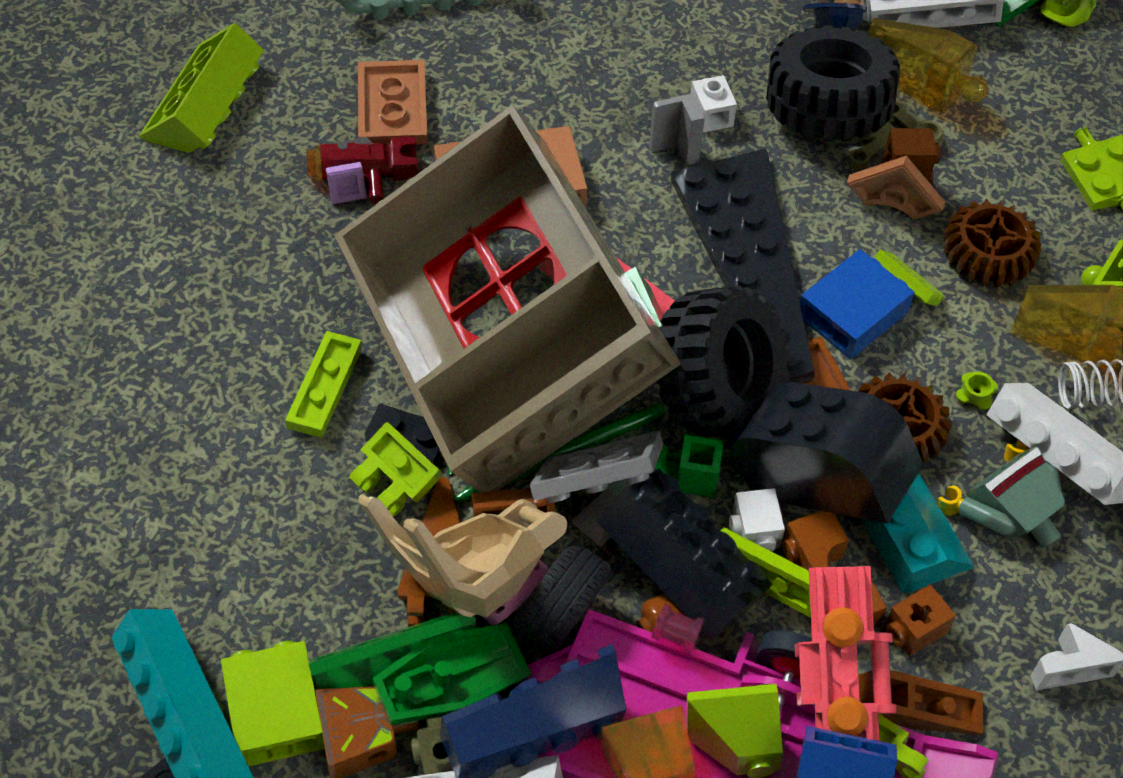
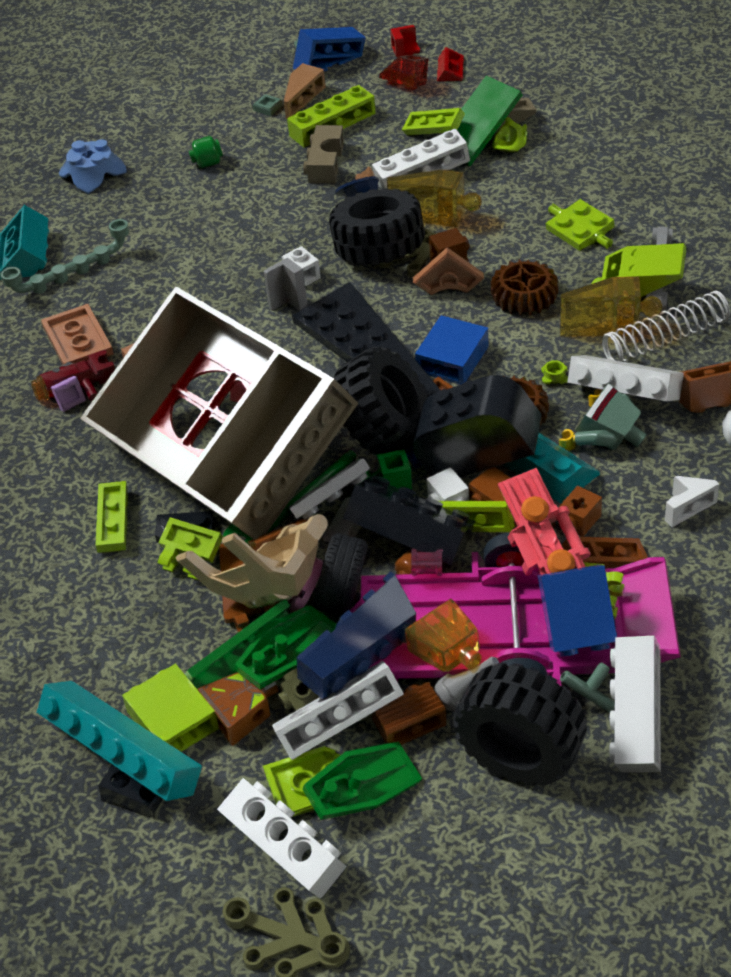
camera: 15 degrees left, 10 degrees down
(738, 728) = (493, 596): lime slope -> none
(922, 289) = (493, 328): lime tile -> none

